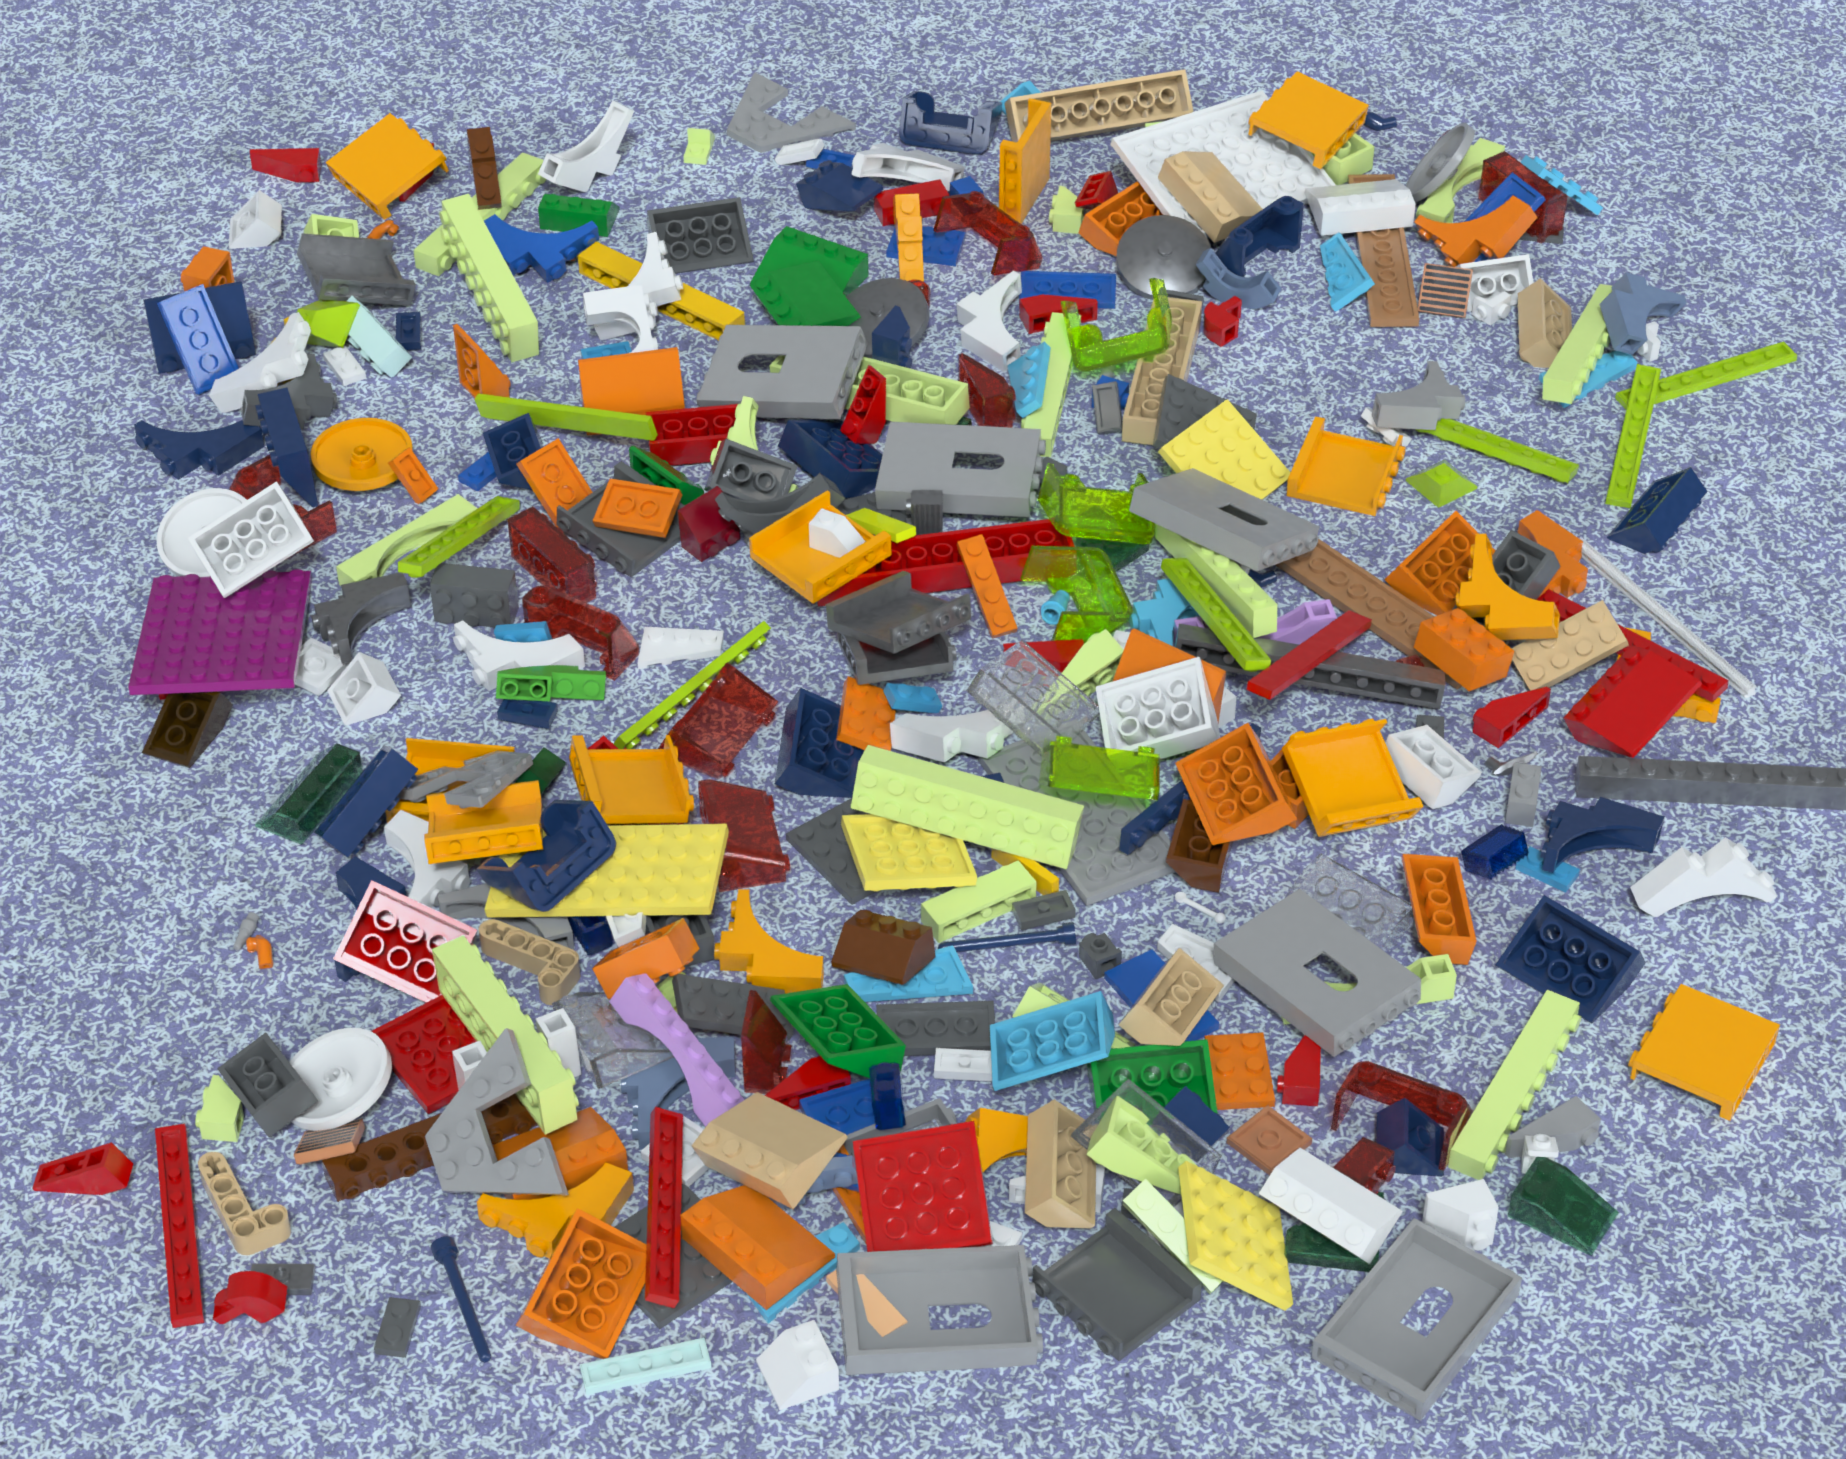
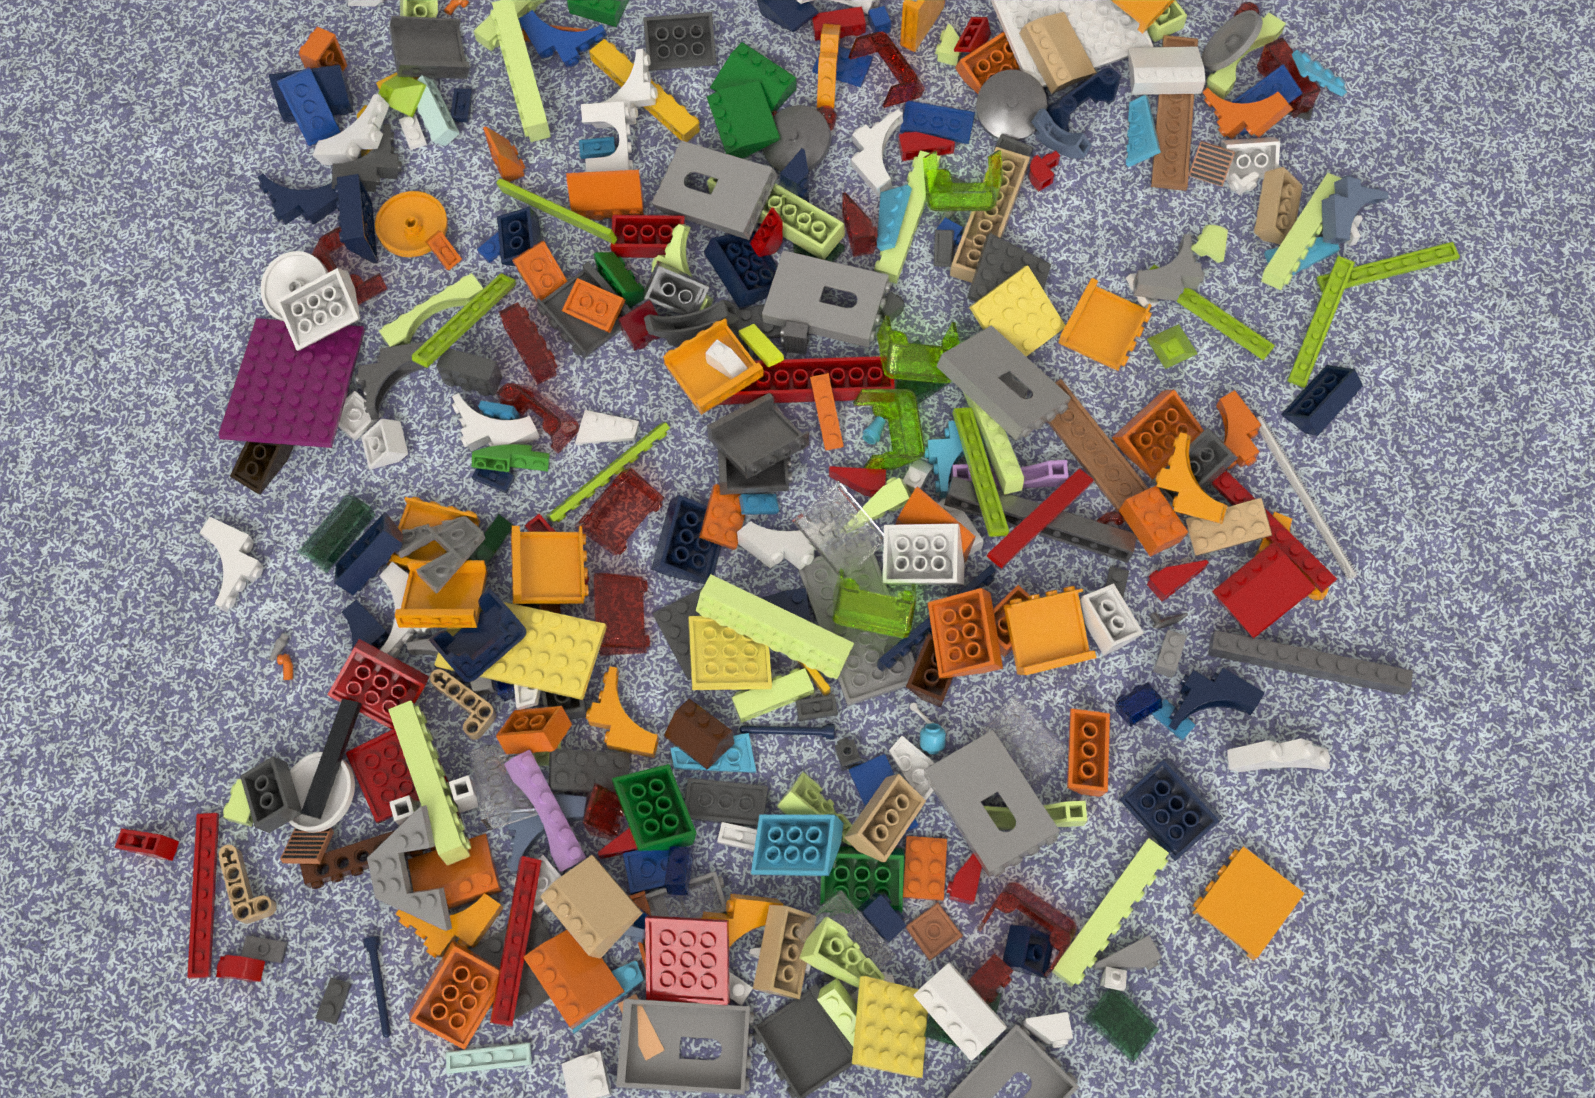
camera: 10 degrees right, 25 degrees up
(166, 831) = (236, 564): none -> white arch
(351, 1030) = (331, 759): none -> black tile
(1216, 920) = (932, 738): none -> medium azure head
(1467, 366) = (1212, 242): none -> yellowish green slope

